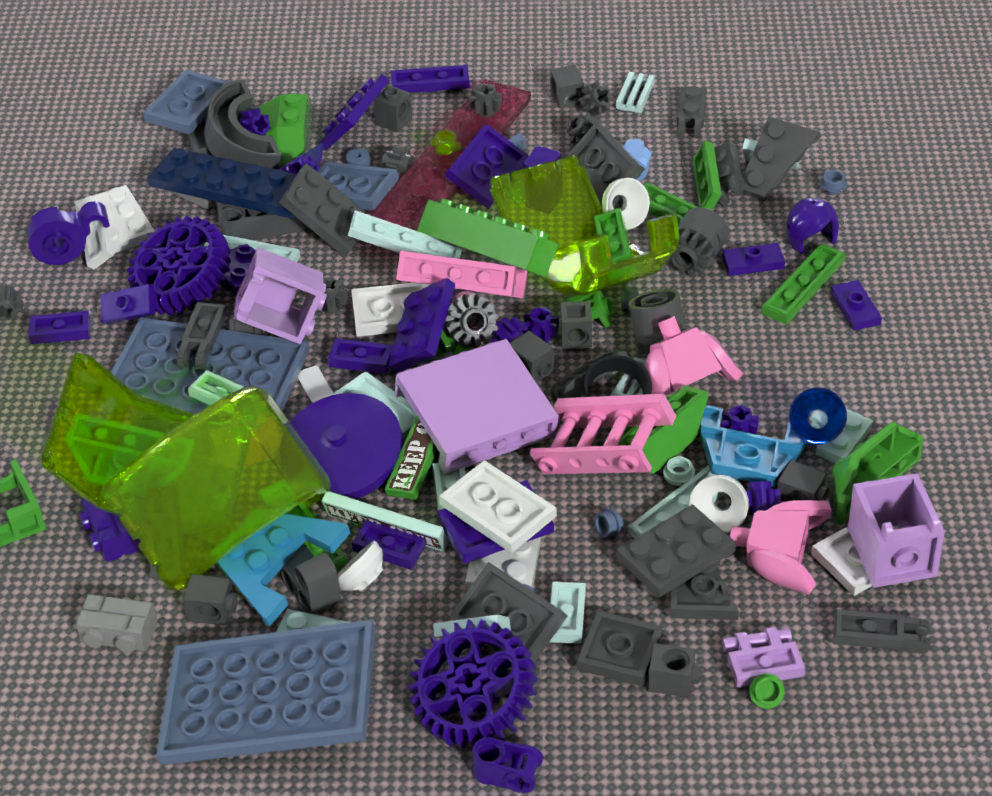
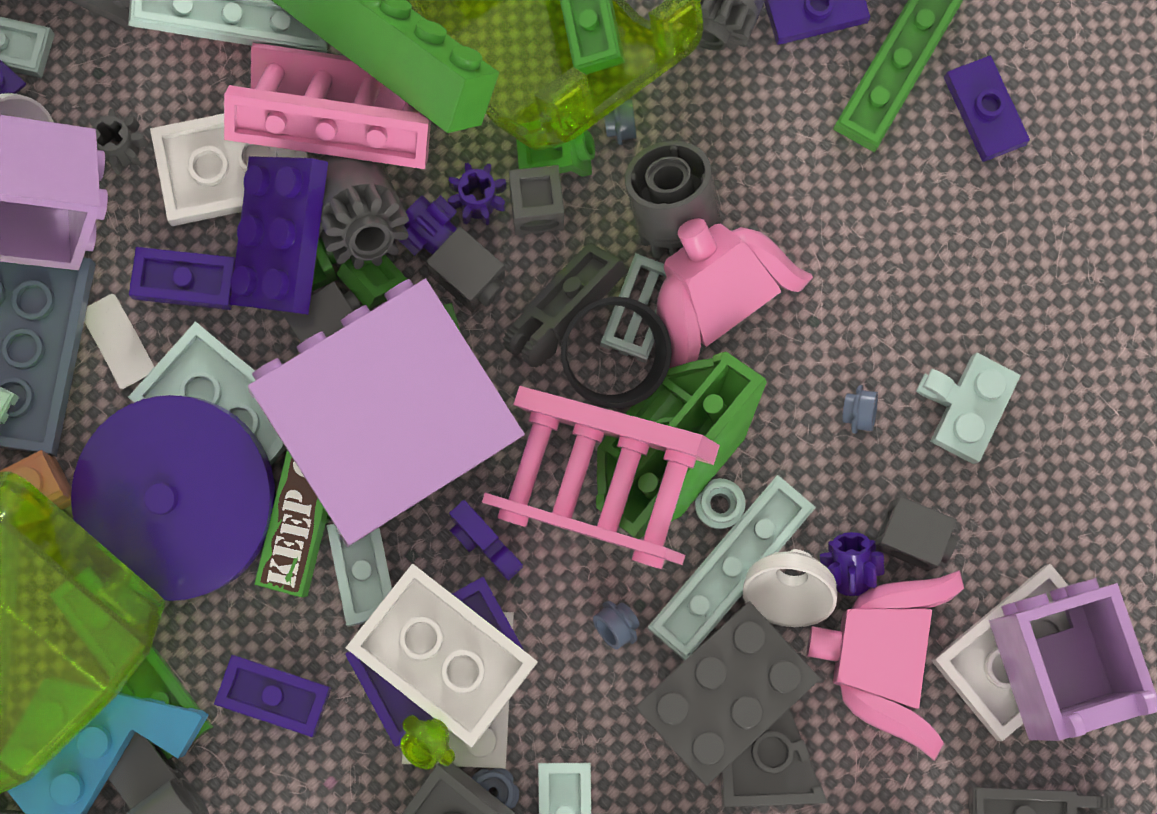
camera: 15 degrees left, 35 degrees up
(358, 512) = (259, 651): light aqua tile -> none
(362, 568) = (230, 762): white piece -> none
(476, 546) = (426, 743): none -> clear neon green plate
(523, 469) = (474, 532): none -> dark purple plate
(740, 419) = (817, 389): dark purple gear -> none
(746, 454) = (833, 475): dark azure wing -> none
(771, 428) = (860, 409): none -> sand blue plate
(818, 400) = (944, 426): clear blue piece -> none
(880, 457) = (1015, 493): bright green wedge -> none

